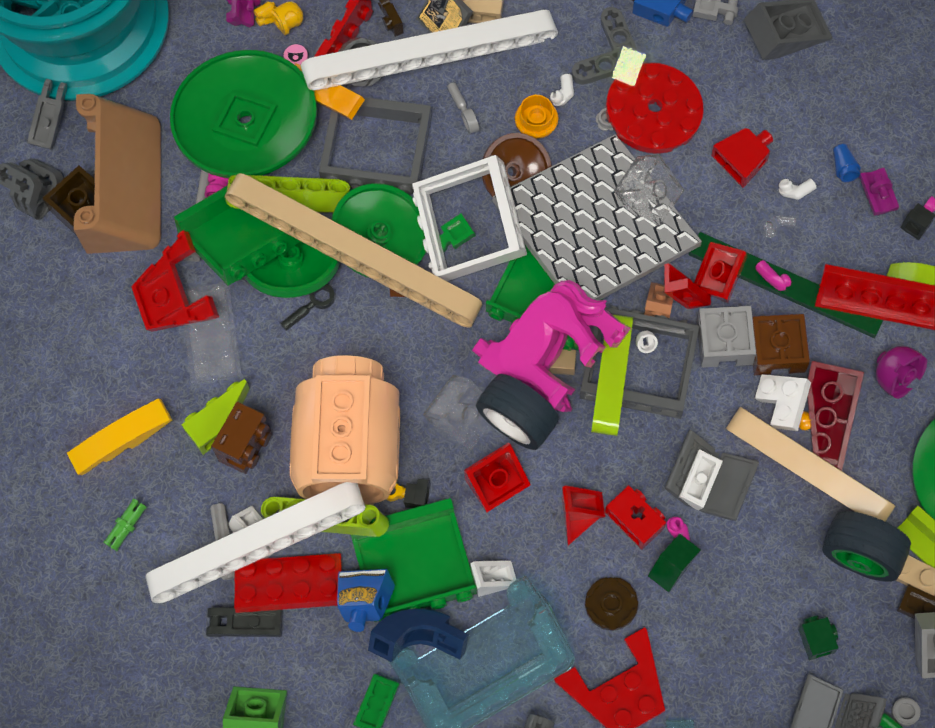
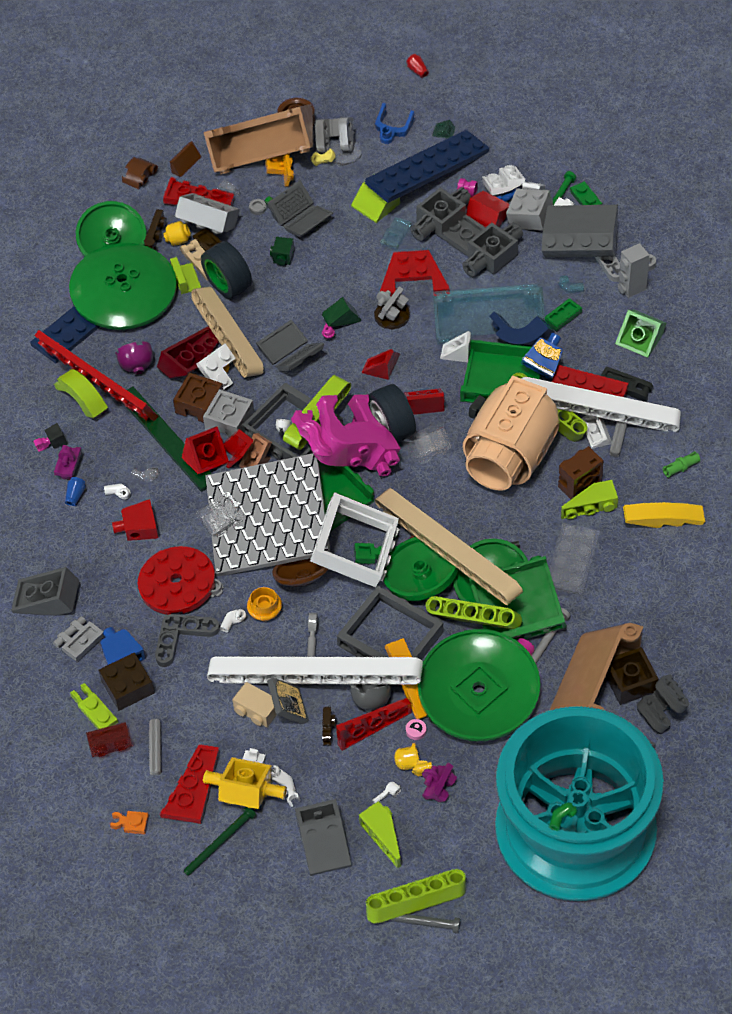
camera: 155 degrees left, 15 degrees down
(161, 293) = (596, 586): red wing -> none
(619, 604) = (388, 302): none -> light grey hips
(628, 66) = (175, 601): clear neon green bracket -> none
(639, 530) = (350, 346): red brick -> none
(700, 479) = (297, 347): white slope -> none
(778, 282) = (175, 437): dark pink arm -> none

